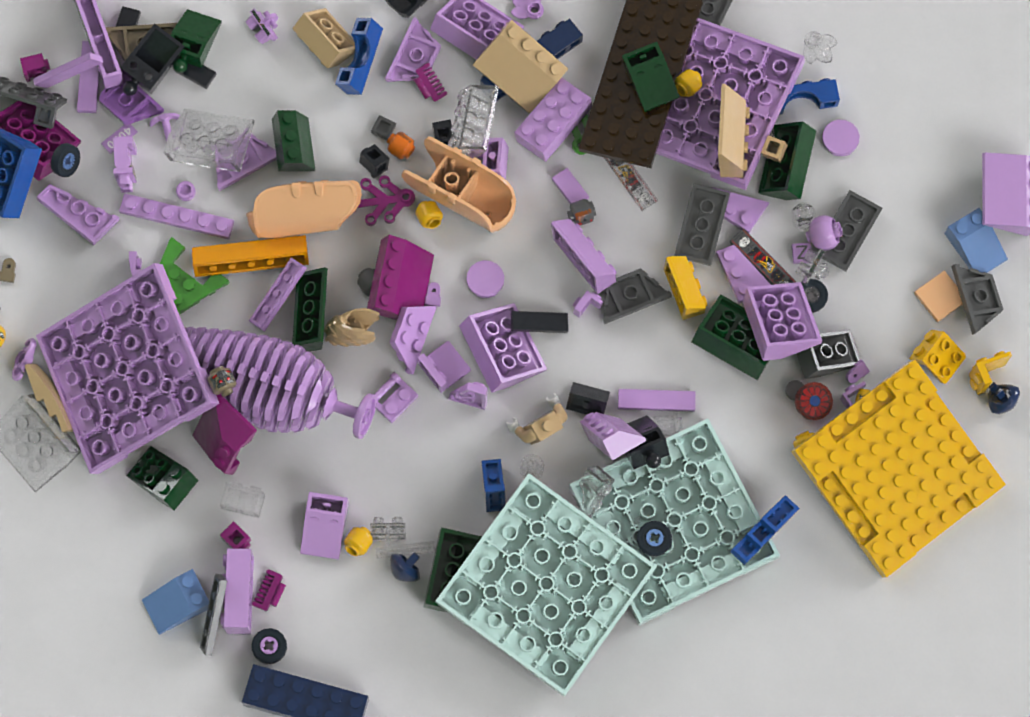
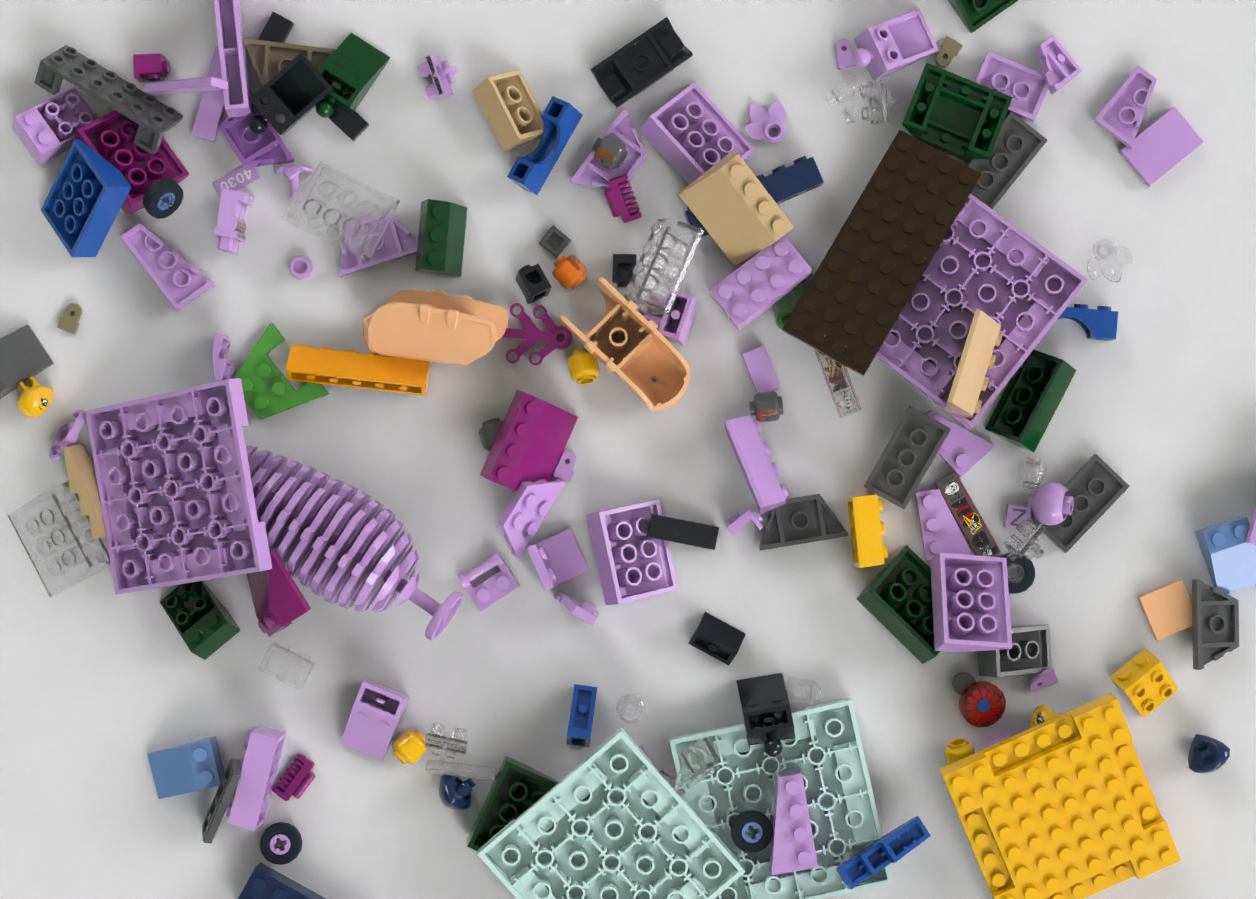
camera: 20 degrees right, 15 degrees up
(176, 216) = (283, 297): lavender plate -> none
(221, 381) = (279, 545): head -> none
(231, 533) = (261, 707): magenta brick -> none
(277, 294) = (380, 426): lavender tile -> none
(310, 309) = (413, 456): dark green slope -> none
(351, 328) = (456, 491): tan head -> none
(411, 48) = (609, 151): none -> dark grey head
(485, 279) = (632, 461): lavender tile -> none
(543, 426) = (656, 662): tan torso -> none
(610, 434) = (733, 700): lavender slope -> none
(650, 76) = (892, 264): dark green slope -> none
(656, 400) = (798, 657): lavender tile -> none
(686, 526) = (792, 832): none -> lavender wedge
(688, 83) = (936, 280): yellow head -> none
(774, 149) = (1018, 387): tan brick -> none
(840, 137) = (1103, 383): lavender tile -> none
(850, 391) = (1028, 703): lavender bracket -> none
(979, 374) = (1187, 723): yellow bracket -> none

